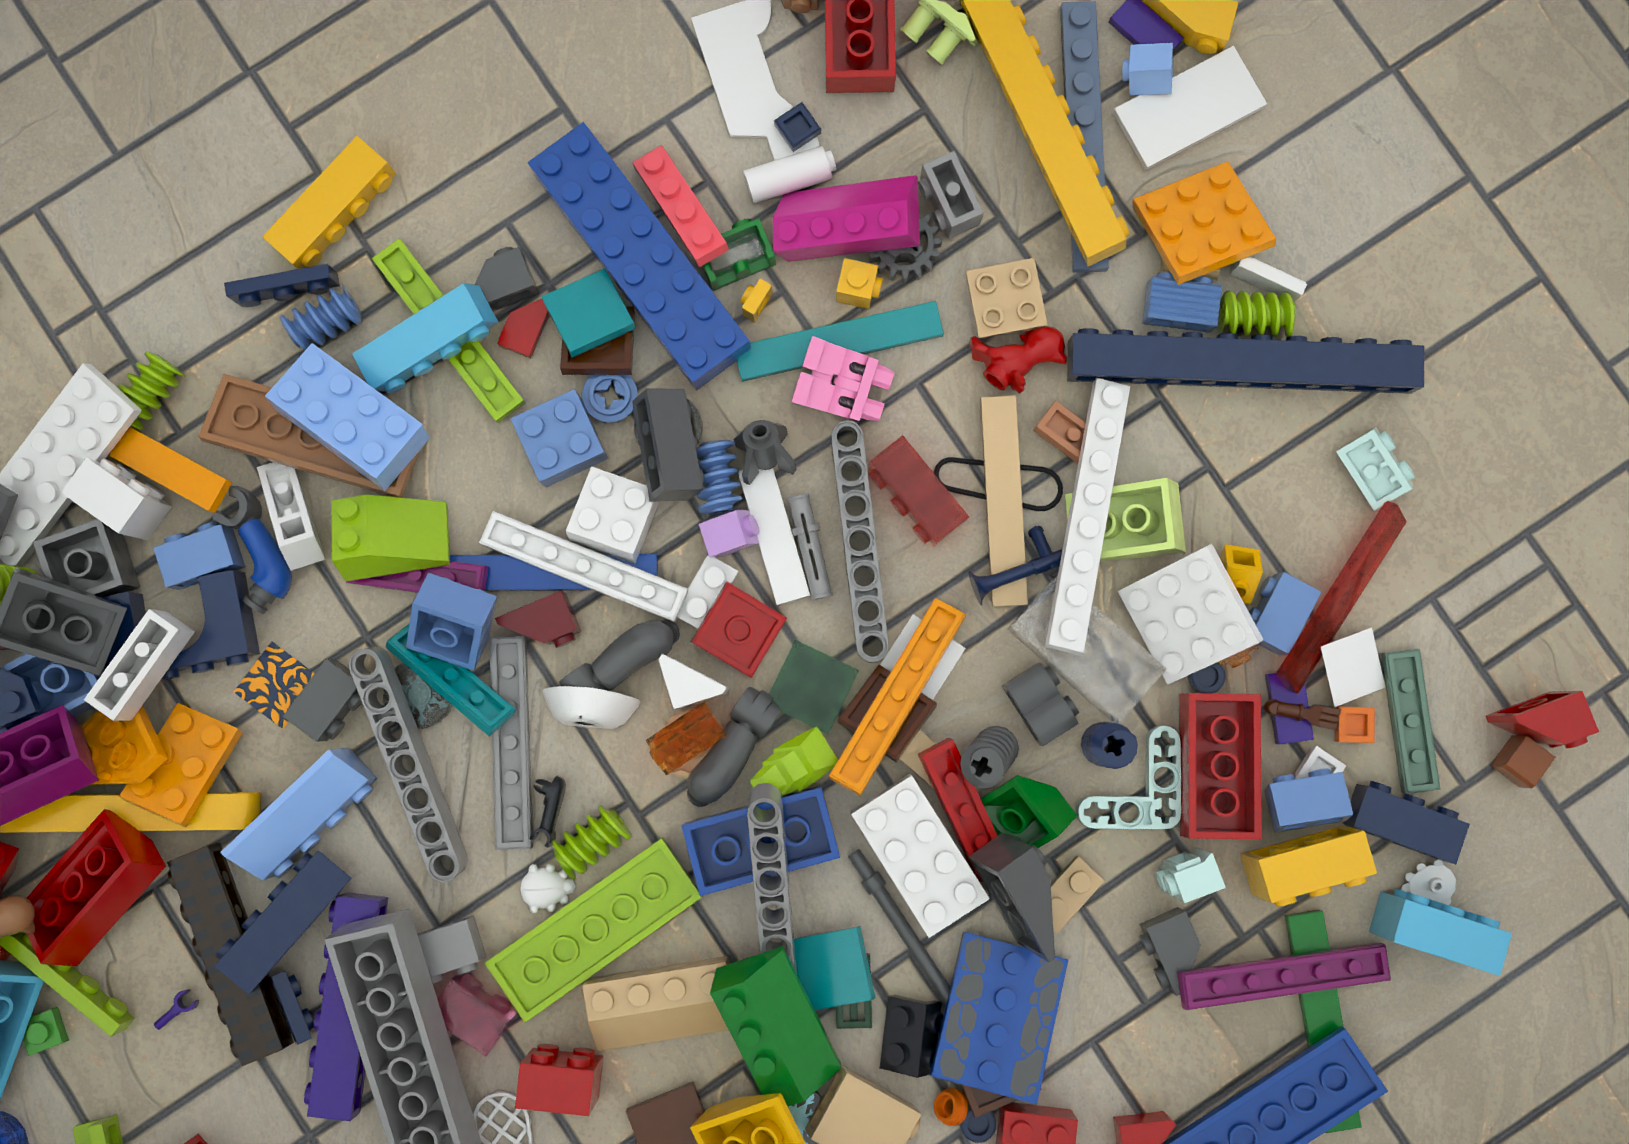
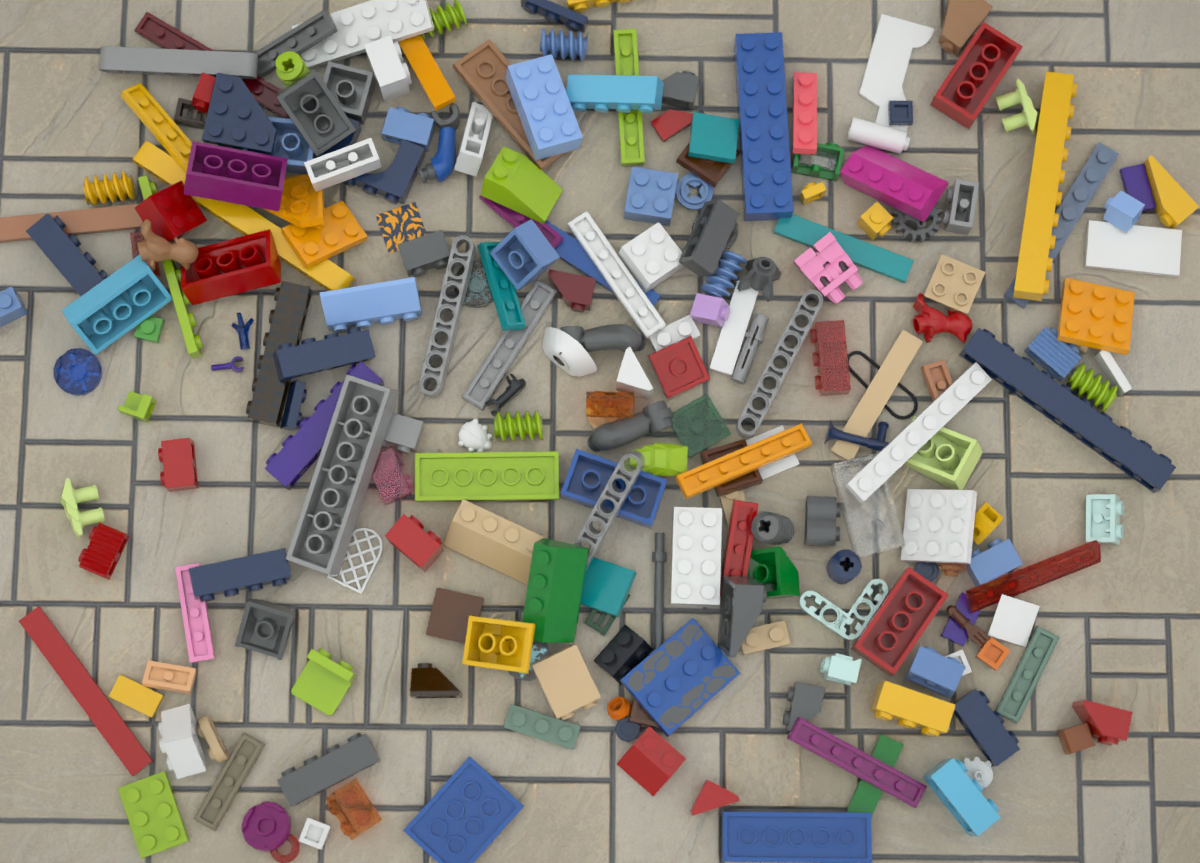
camera: 30 degrees right, 5 degrees down
(165, 954) = (242, 330): none -> clear blue bar

